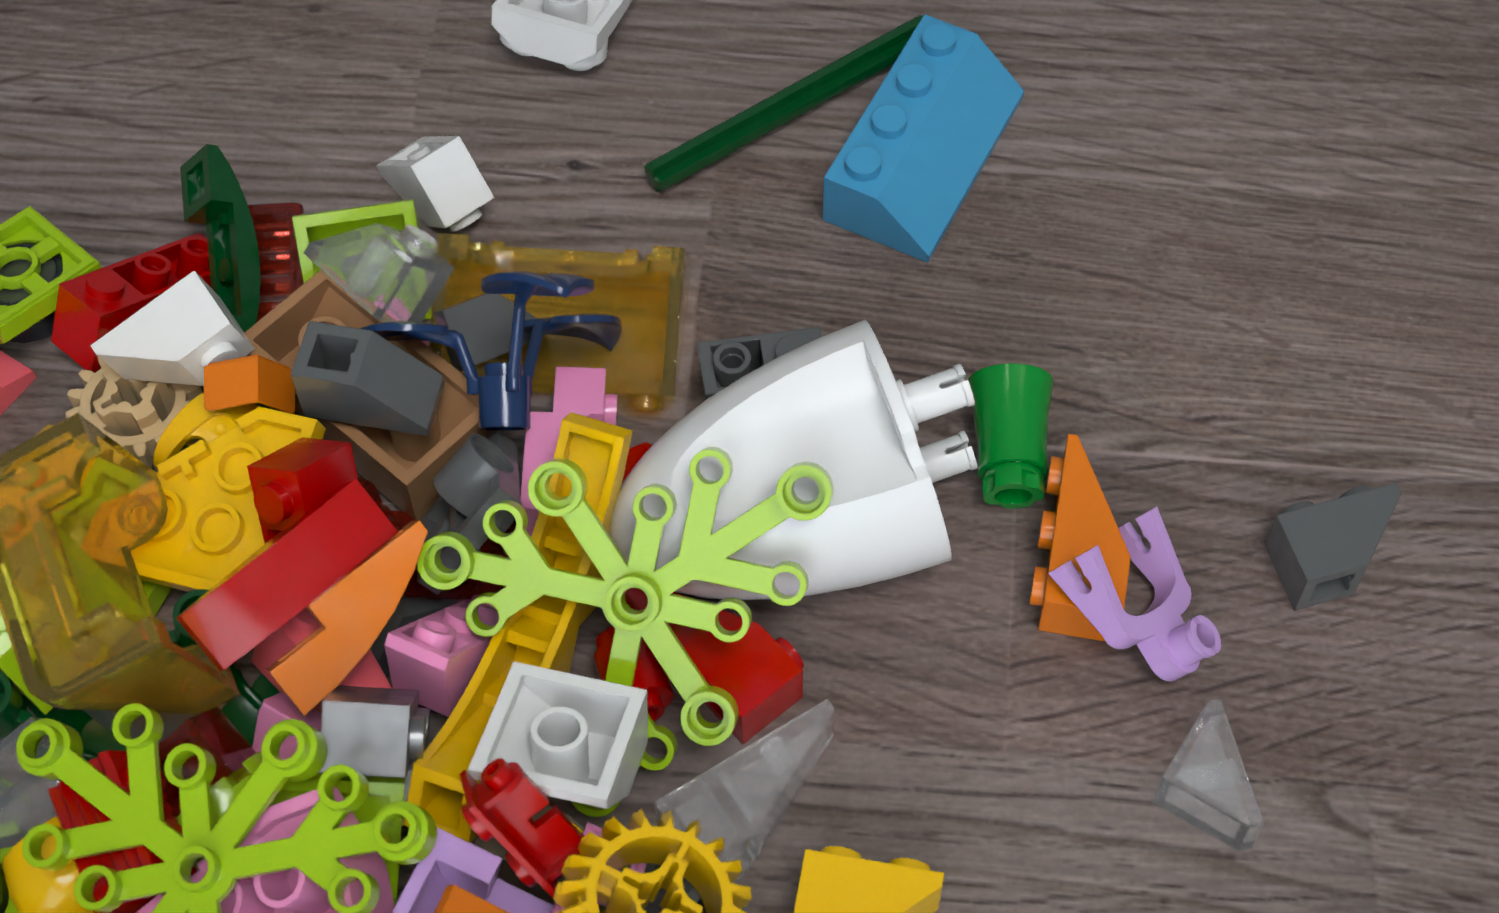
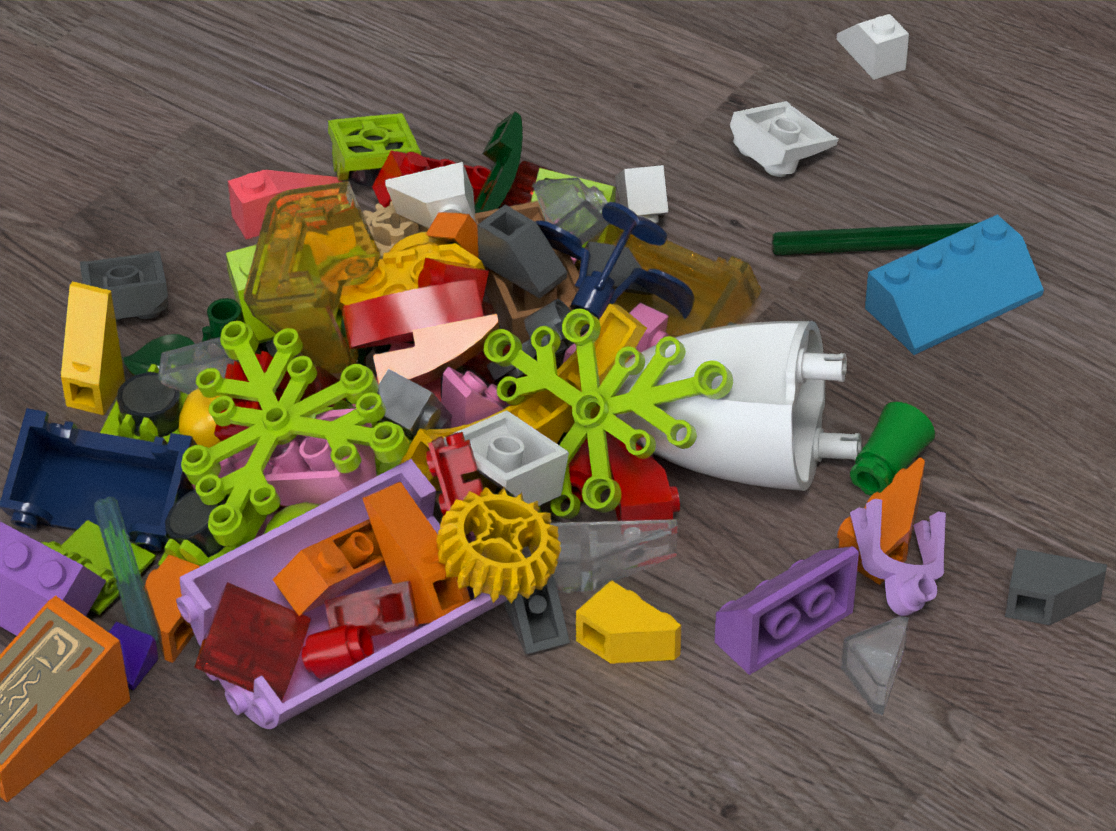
camera: 30 degrees right, 15 degrees down
(1044, 756) = (788, 608): none -> medium lavender slope

